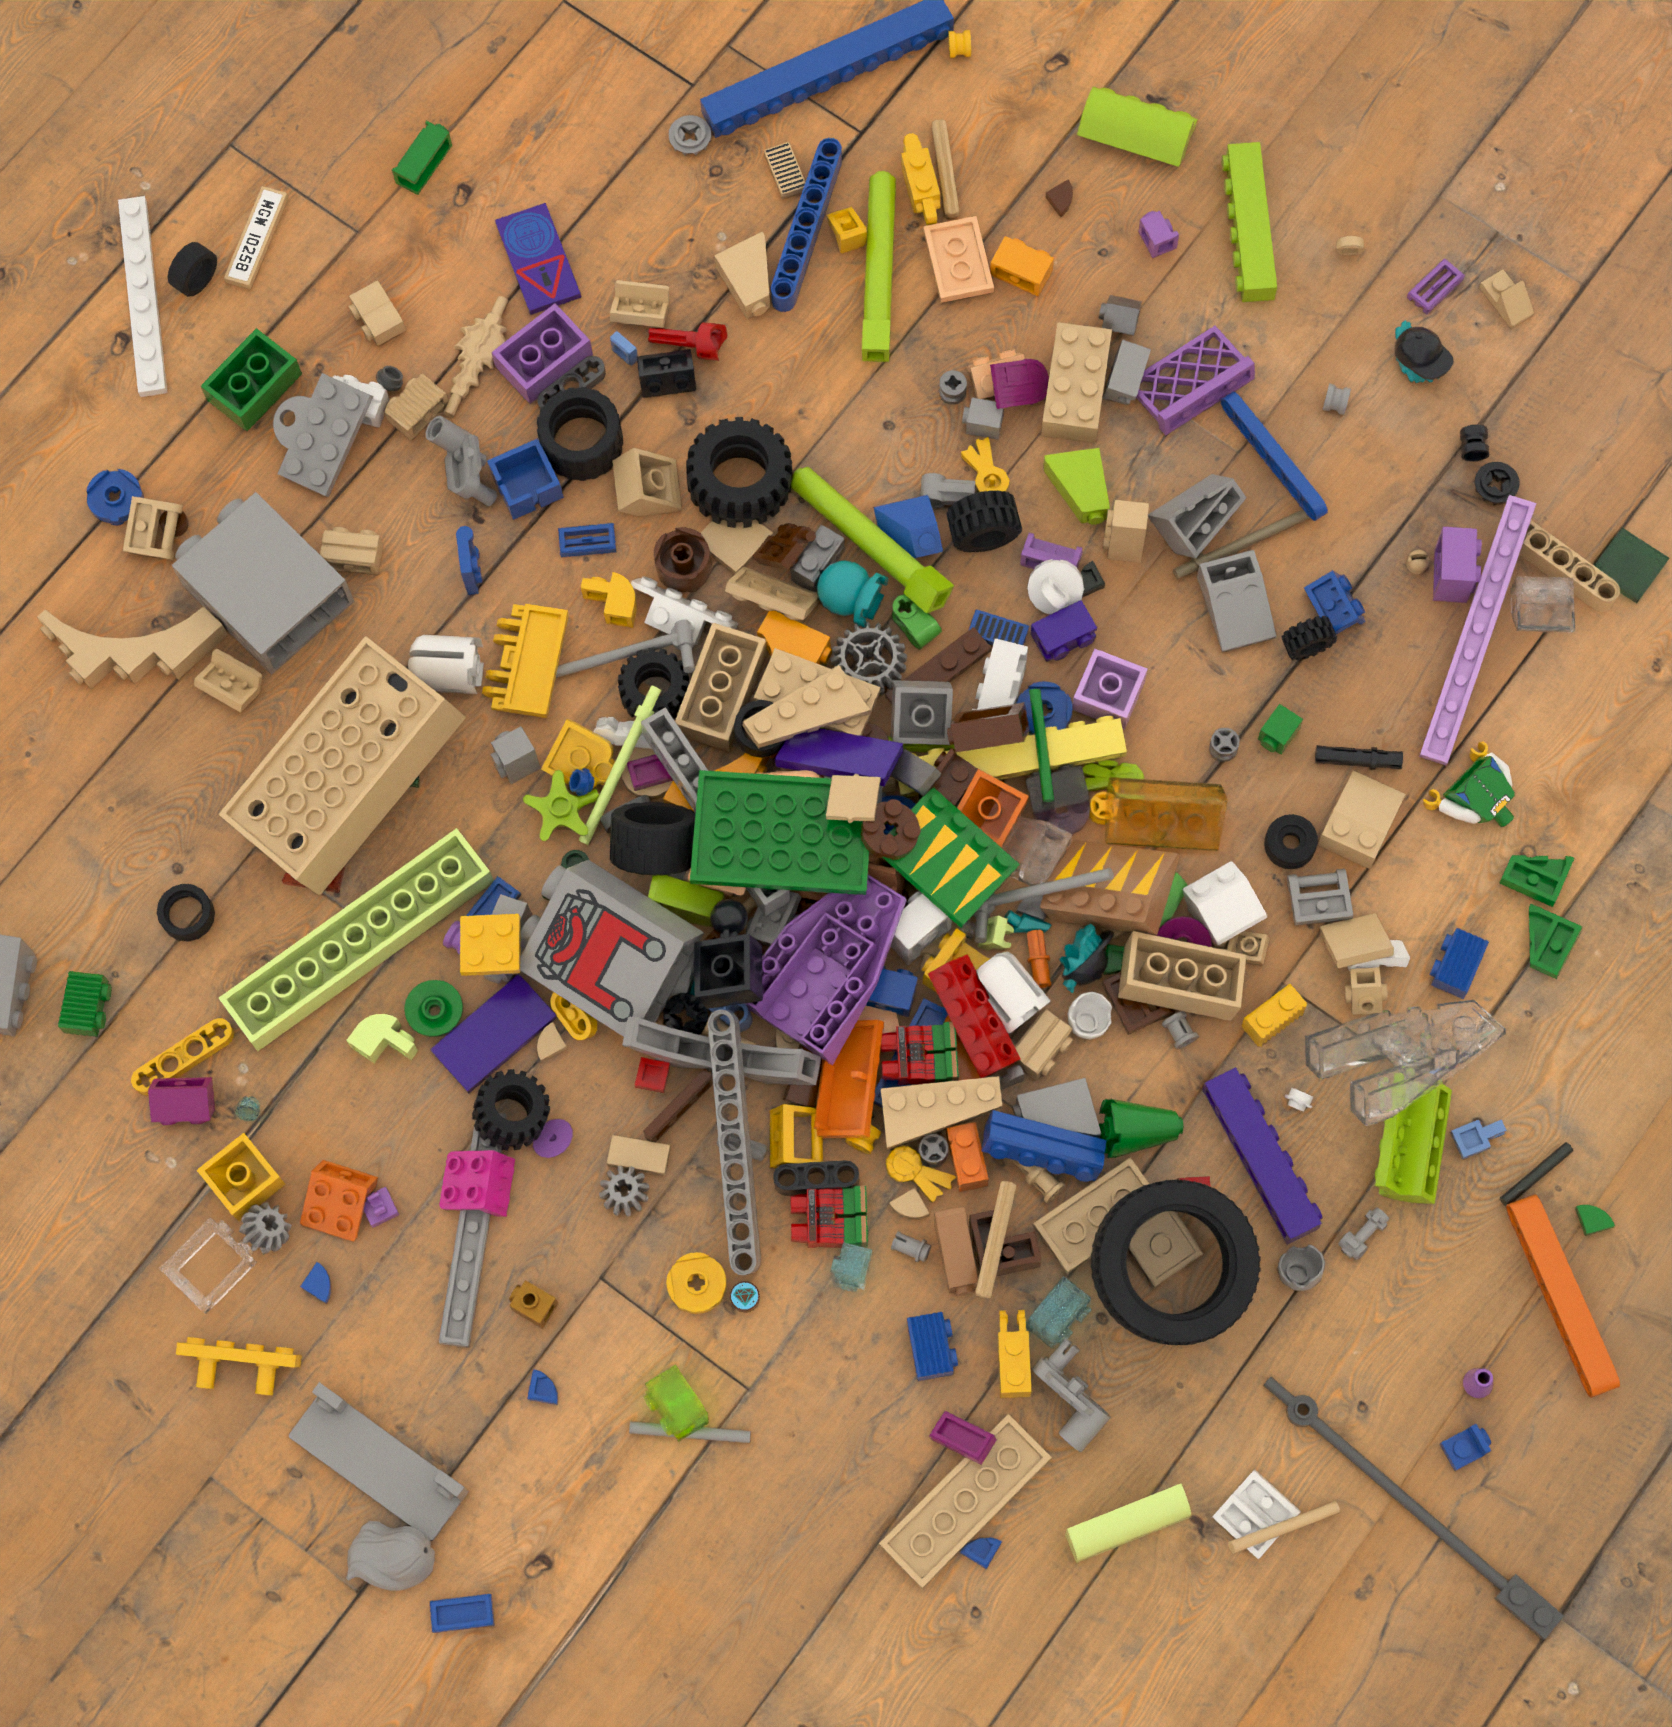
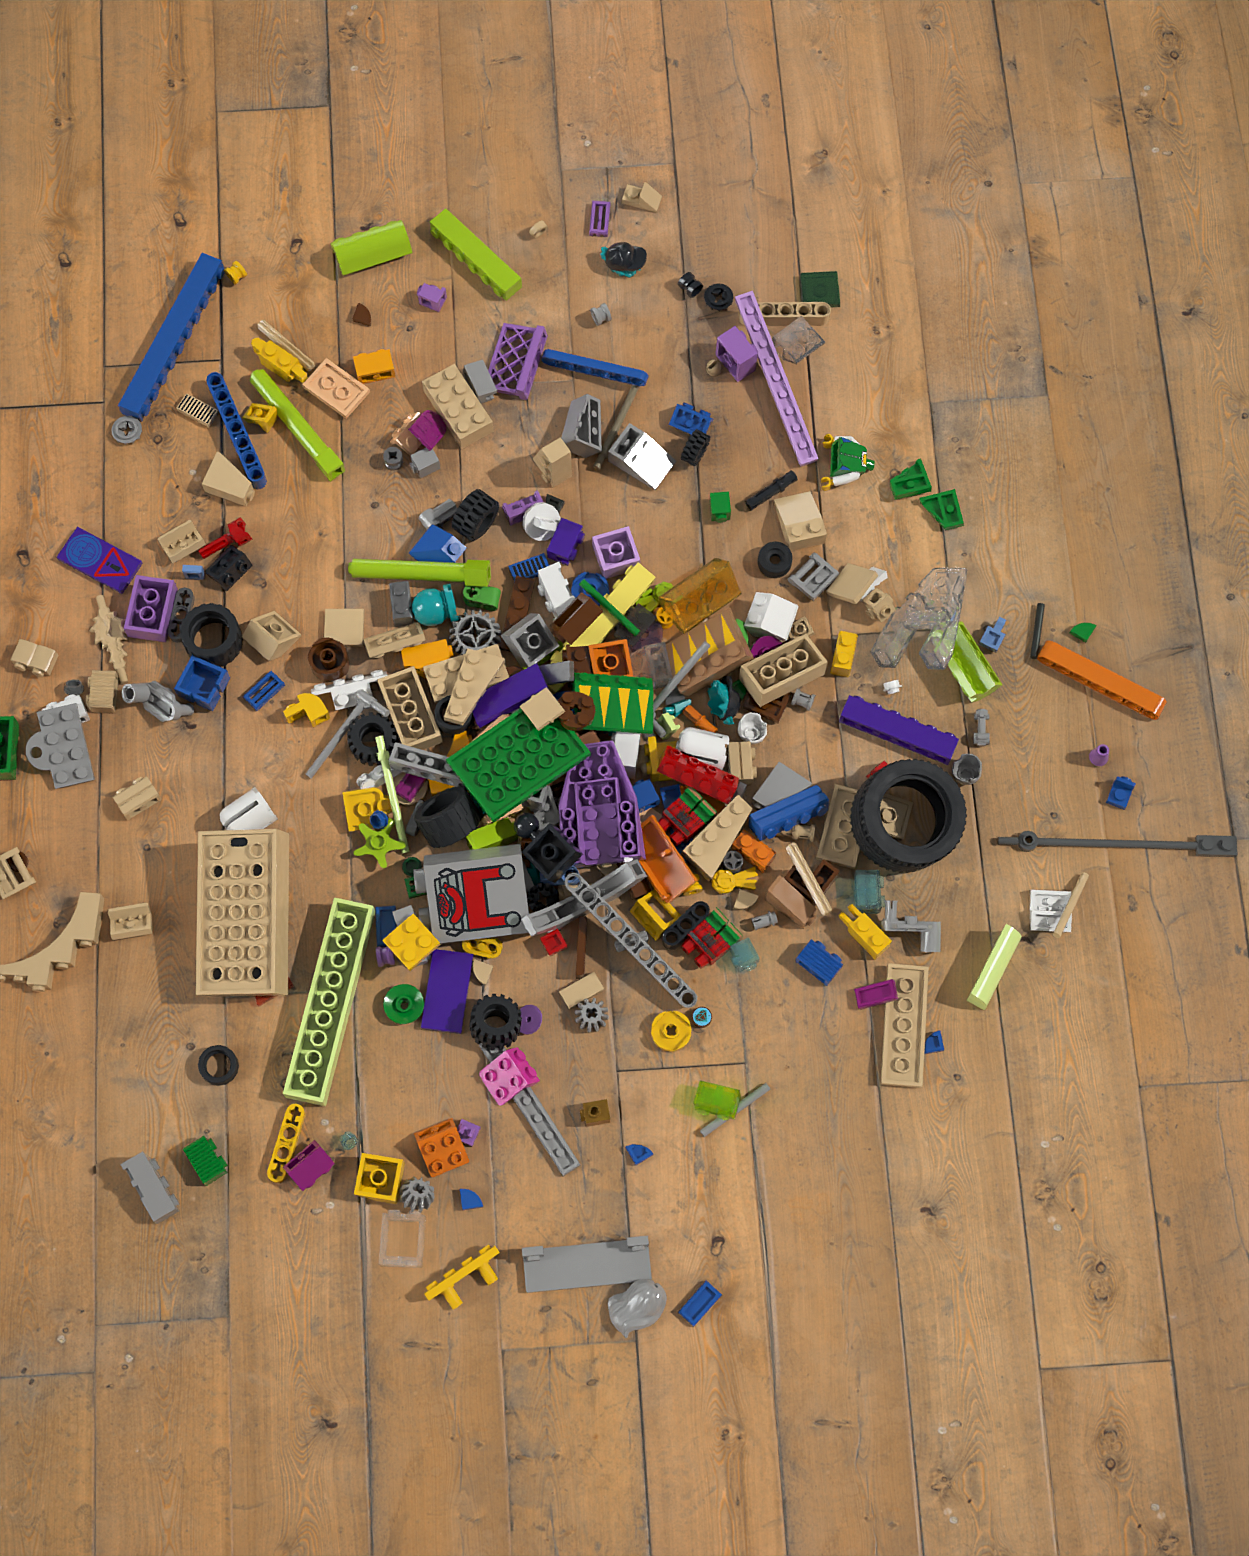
camera: 45 degrees left, 0 degrees up
(262, 581) = (101, 852): light grey brick -> none
(376, 1033) = (384, 1042): yellowish green brick -> none
(468, 560) = (213, 753): blue plate -> none
(514, 755) = (329, 834): light grey brick -> none
(530, 657) = (289, 776): yellow hinge -> none
(731, 441) = (313, 568): black tyre -> none
(785, 547) = (379, 610): reddish brown plate -> none
(988, 477) = (456, 491): yellow piece -> none
(1080, 483) = (506, 457): lime slope -> none
(1120, 314) = (450, 353): flat silver brick -> none
(1136, 1127) = (825, 765): green cone -> none
(1228, 739) = (699, 532): flat silver wheel -> none
(1459, 962) = (910, 555): blue brick -> none

